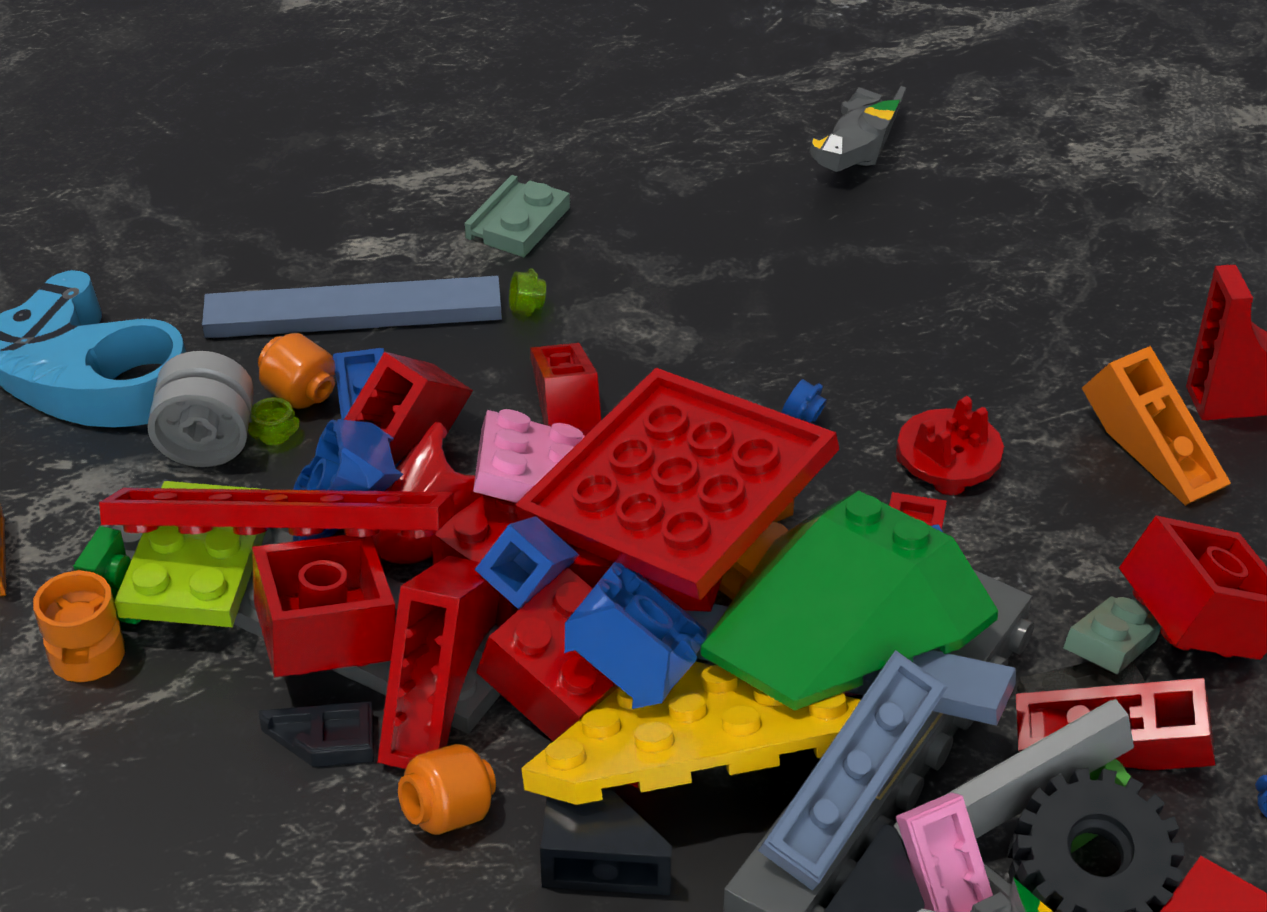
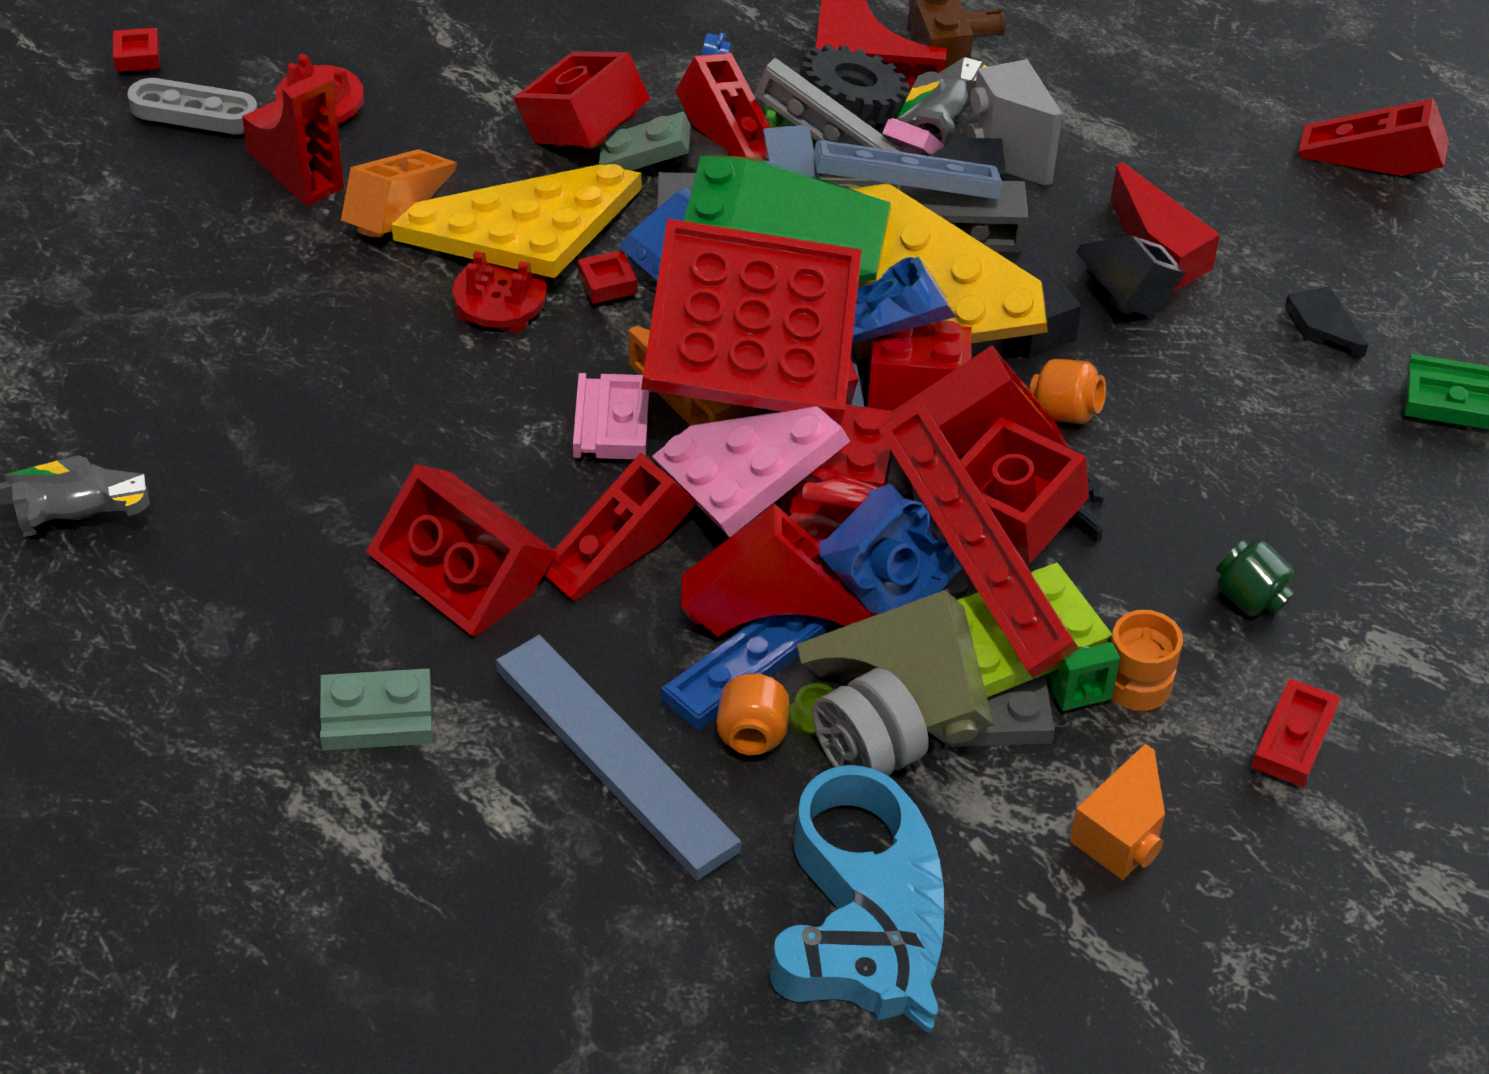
camera: 125 degrees left, 5 degrees up
(74, 784) = (1255, 578): none -> dark green head
(221, 449) = (926, 649): none -> olive arch
(525, 560) = (893, 374): blue brick -> none
(526, 292) = (504, 628): clear neon green plate -> none
(630, 296) = (459, 549): none -> red slope
(805, 402) = (516, 396): blue plate -> none
(1046, 504) = (526, 220): none -> yellow plate

